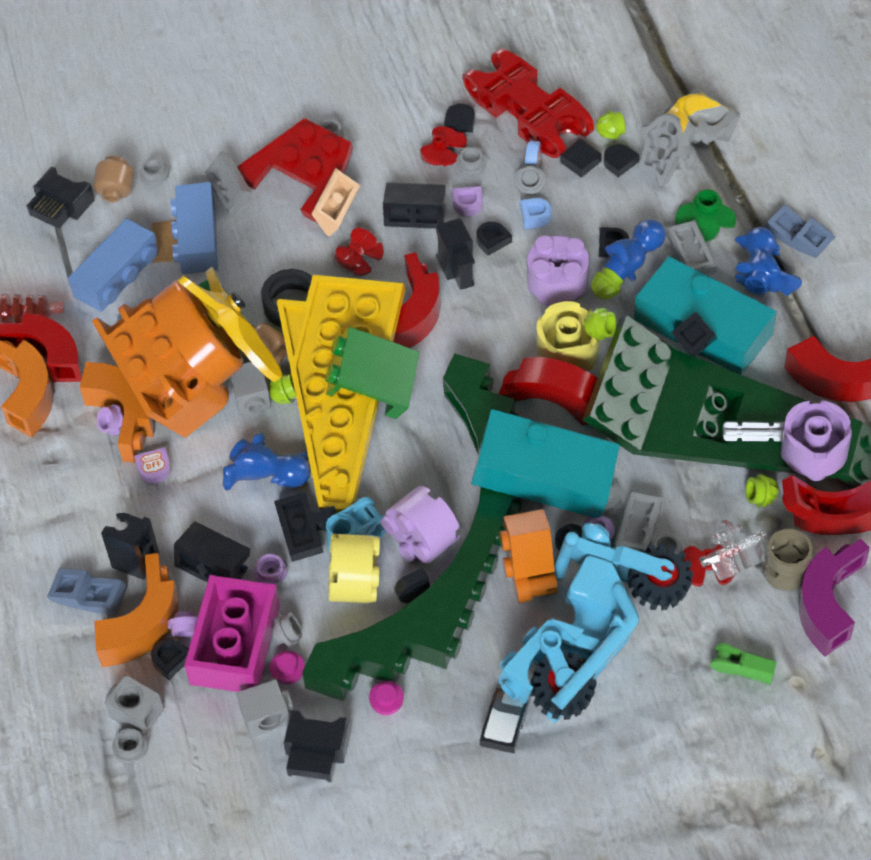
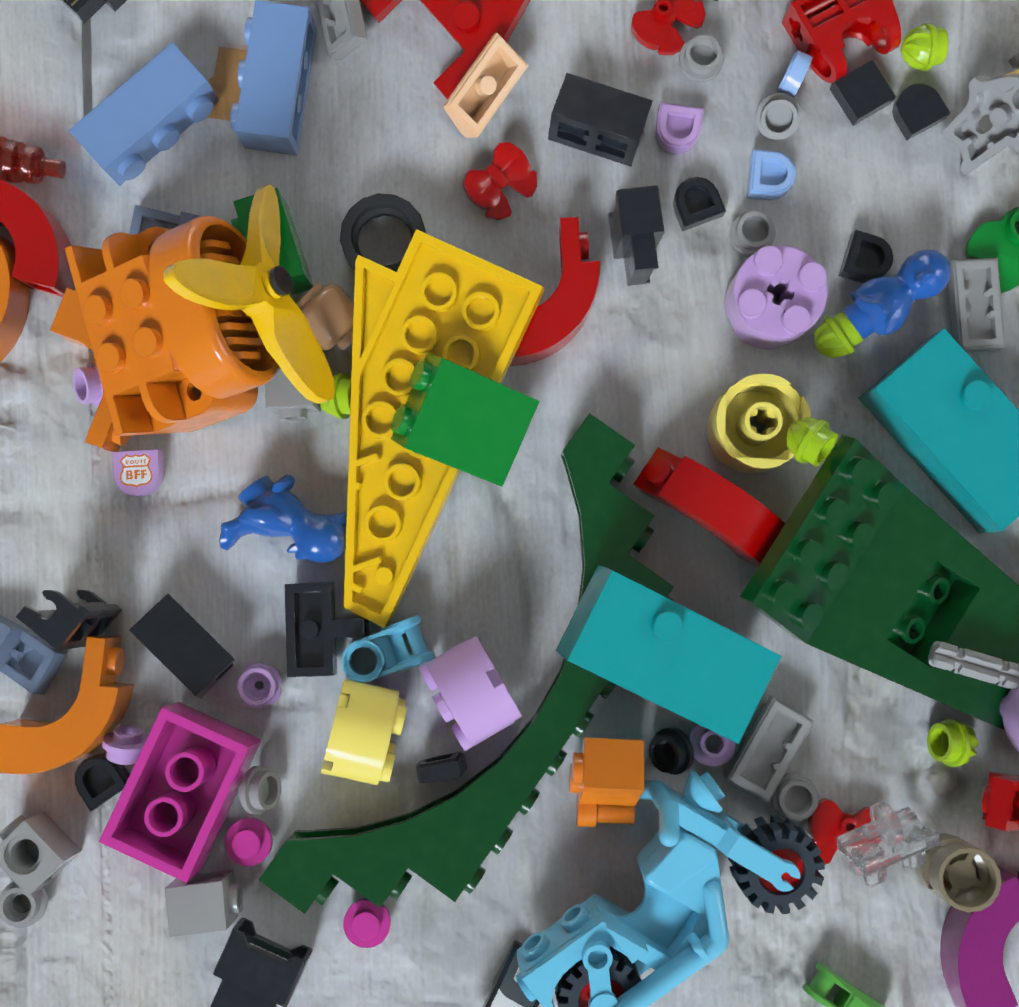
camera: 15 degrees right, 30 degrees up
(528, 239) = (752, 232): none -> light grey plate
(694, 335) = (941, 481): black tile -> none

